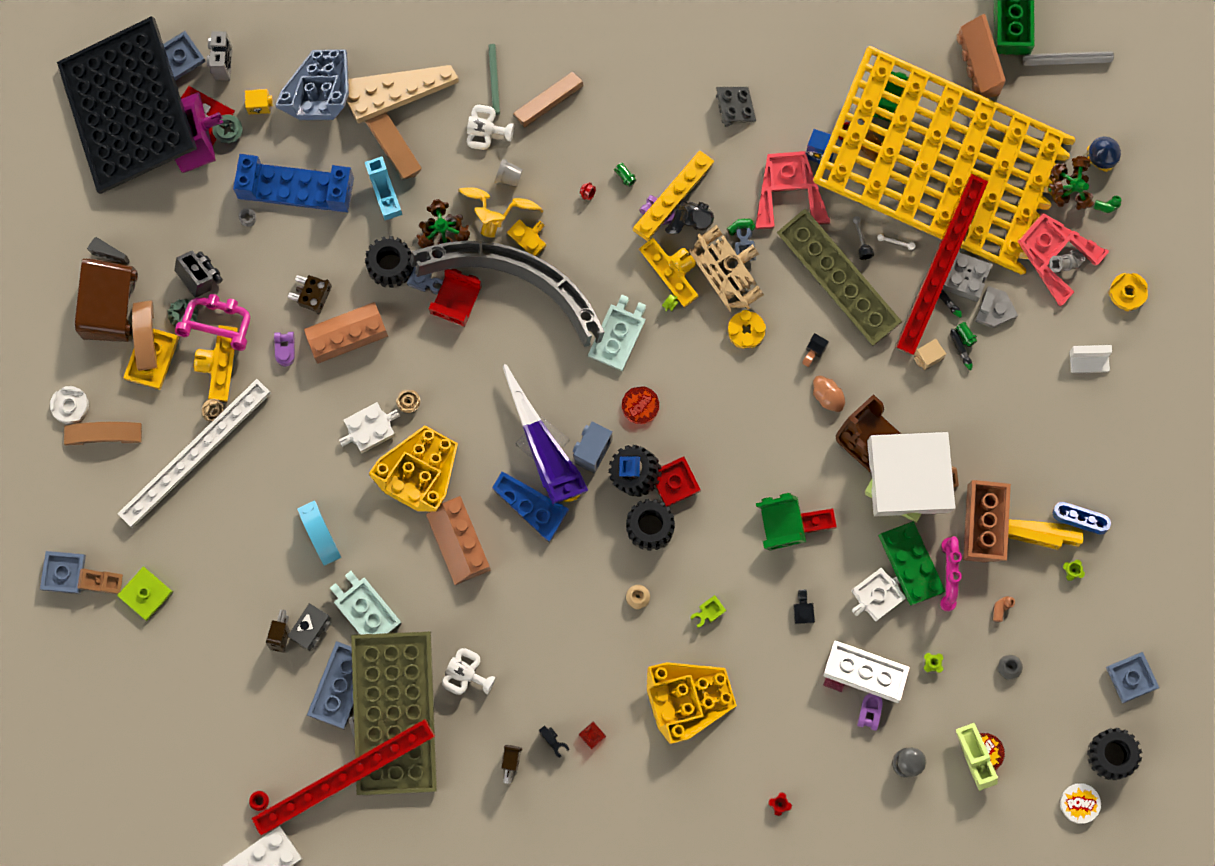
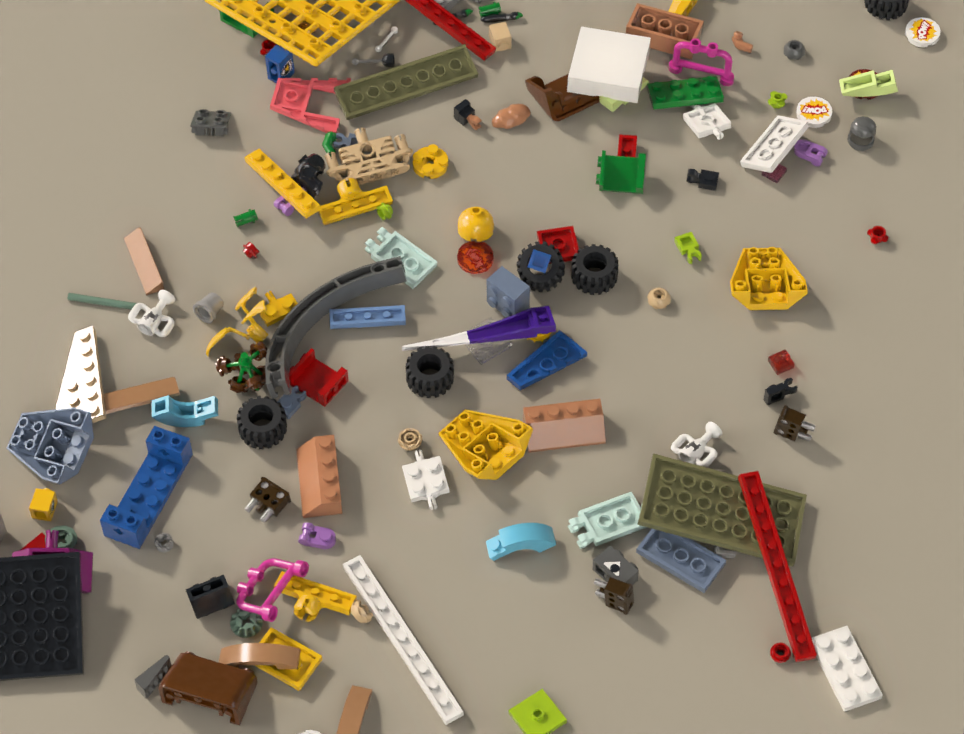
camera: 75 degrees left, 20 degrees down
(480, 383) = (429, 359): none -> black tyre
(538, 323) = (367, 317): none -> medium blue plate
(675, 395) = (475, 224): none -> yellow cylinder
(929, 705) = (815, 111): none -> tile

